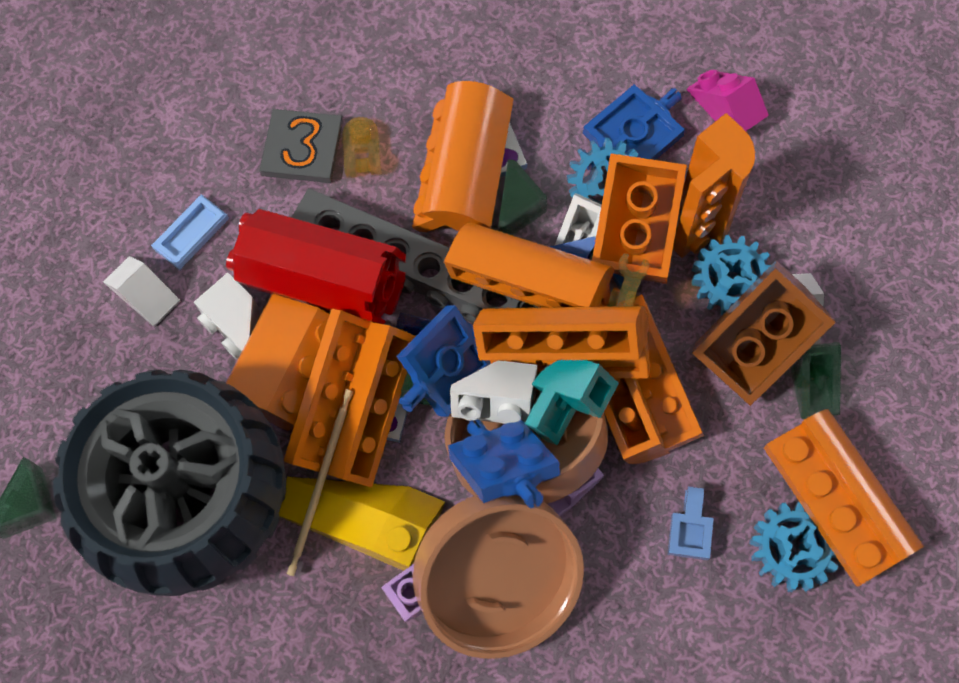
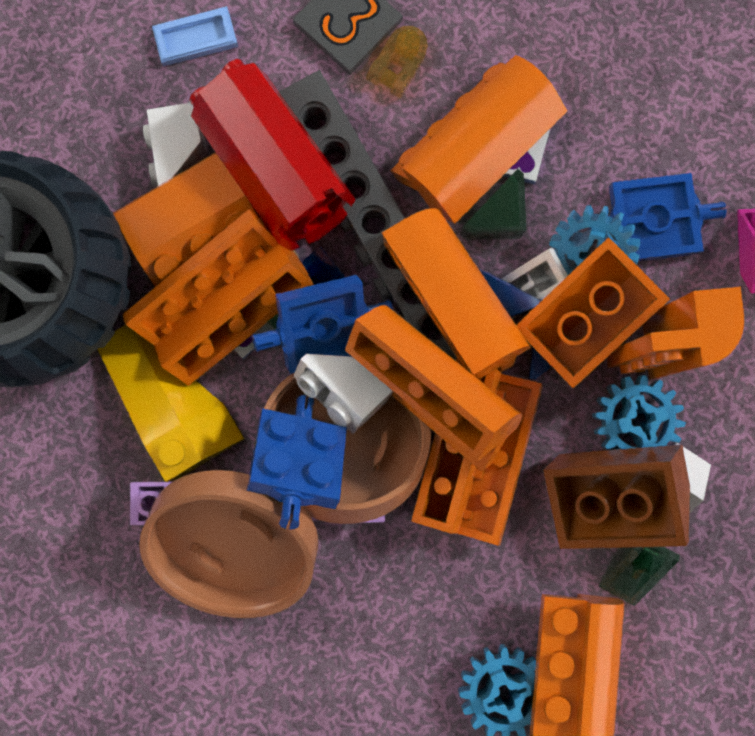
camera: 30 degrees right, 15 degrees up
(142, 290) = (115, 64): white slope -> none
(319, 483) = (146, 351): tan piece -> none
(568, 388) = (398, 432): teal brick -> none
(630, 285) = (518, 380): clear yellow plate -> none
(691, 532) = (427, 615): medium blue plate -> none

